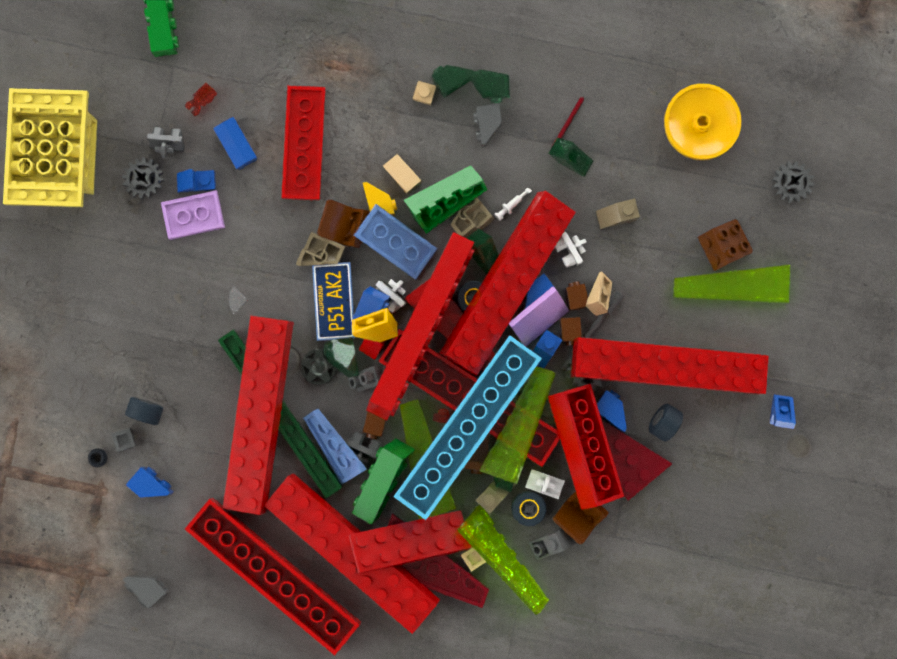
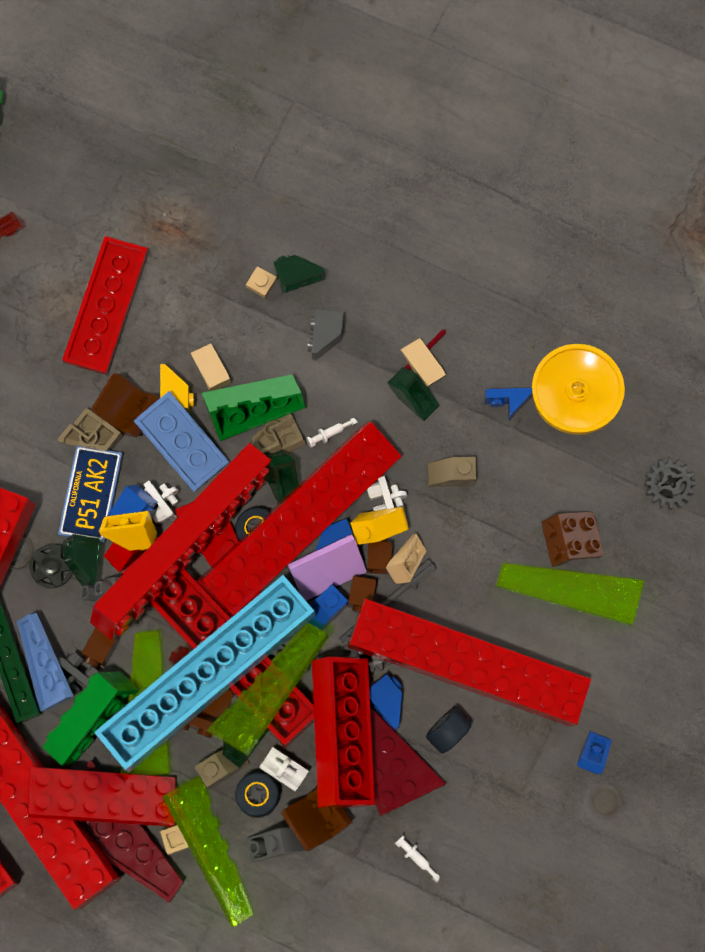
camera: 10 degrees right, 10 degrees down
(235, 143) = (26, 287): blue piece -> none
(491, 85) = (339, 288): clear green slope -> none
(571, 272) = (379, 525): none -> yellow slope
(572, 129) = (423, 362): none -> tan slope
(652, 141) = (514, 397): none -> blue slope
(663, 525) = (416, 856): none -> white piece

